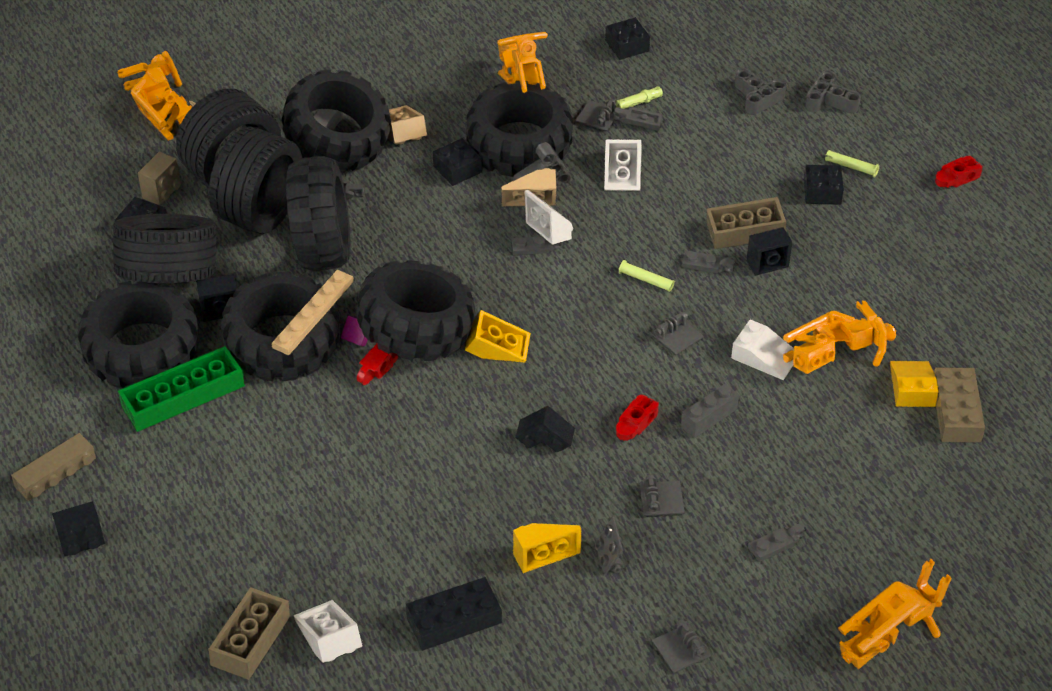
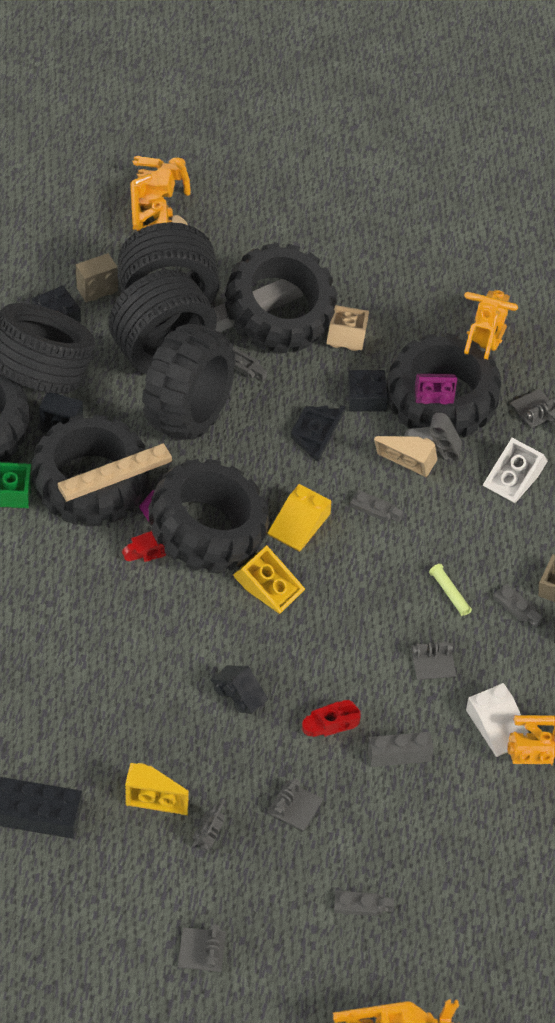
camera: 30 degrees right, 5 degrees up
(439, 210) = (316, 428): none -> black wing
(484, 278) = (300, 517): none -> yellow slope
(526, 125) = (435, 388): none -> magenta slope
(546, 220) = (399, 488): white slope -> none

